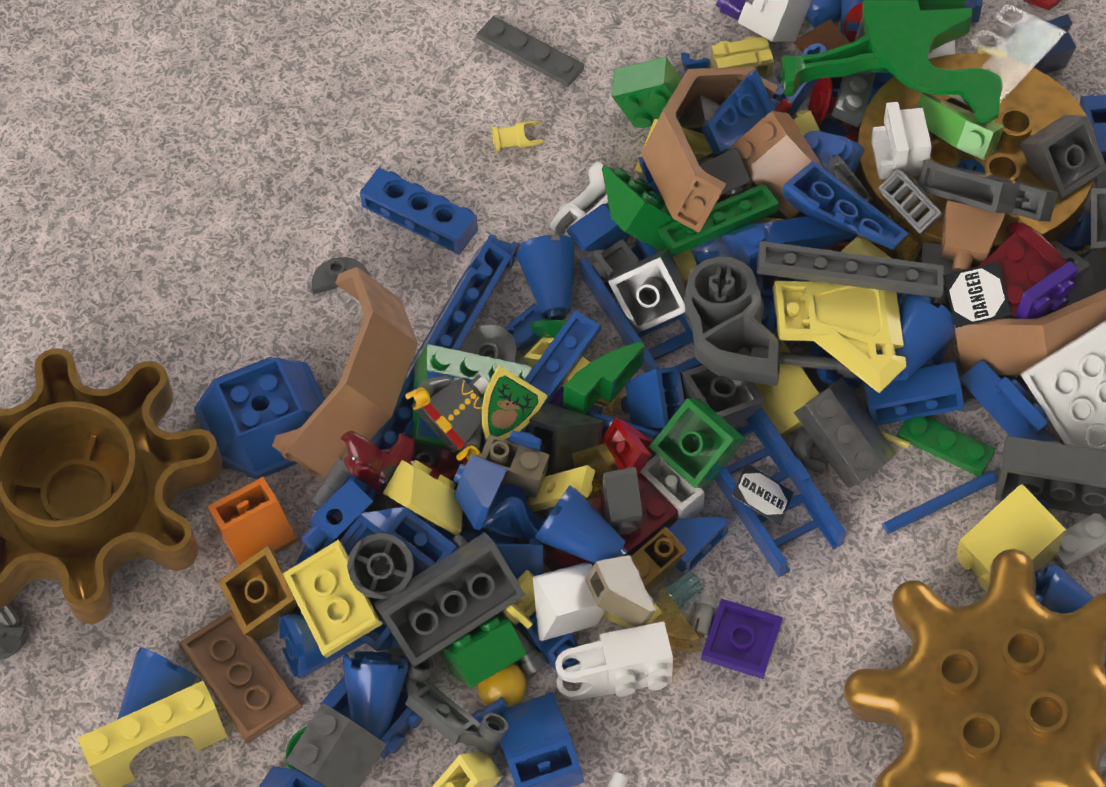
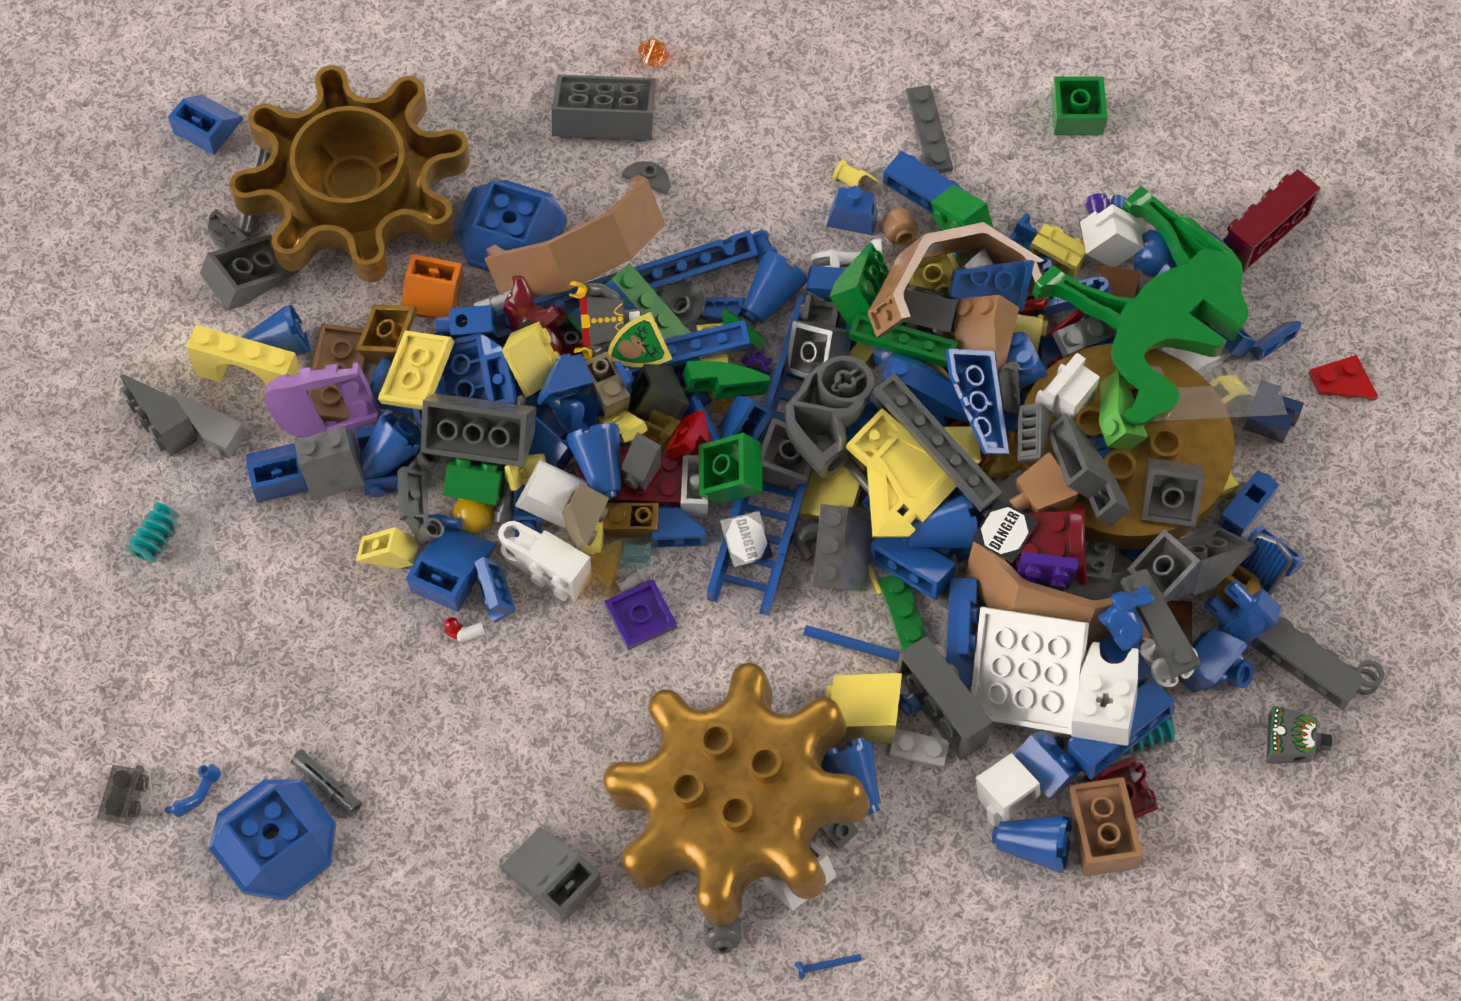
camera: 40 degrees right, 5 degrees up
(54, 659) = (243, 271): none -> dark grey slope
(230, 169) = (653, 52): none -> clear orange gear
(237, 249) = (603, 109): none -> dark grey slope
(246, 734) = (295, 411): none -> medium lavender slope
(379, 197) = (734, 143): blue brick -> none
(380, 565) = (455, 373): dark grey cylinder -> none
(545, 160) = (853, 211): none -> blue torso
(575, 97) = (916, 180): none -> blue brick
(596, 142) = (899, 226): none -> medium nougat head
(598, 733) = (494, 589): none -> blue bracket
(605, 343) = (758, 358): none -> dark purple gear

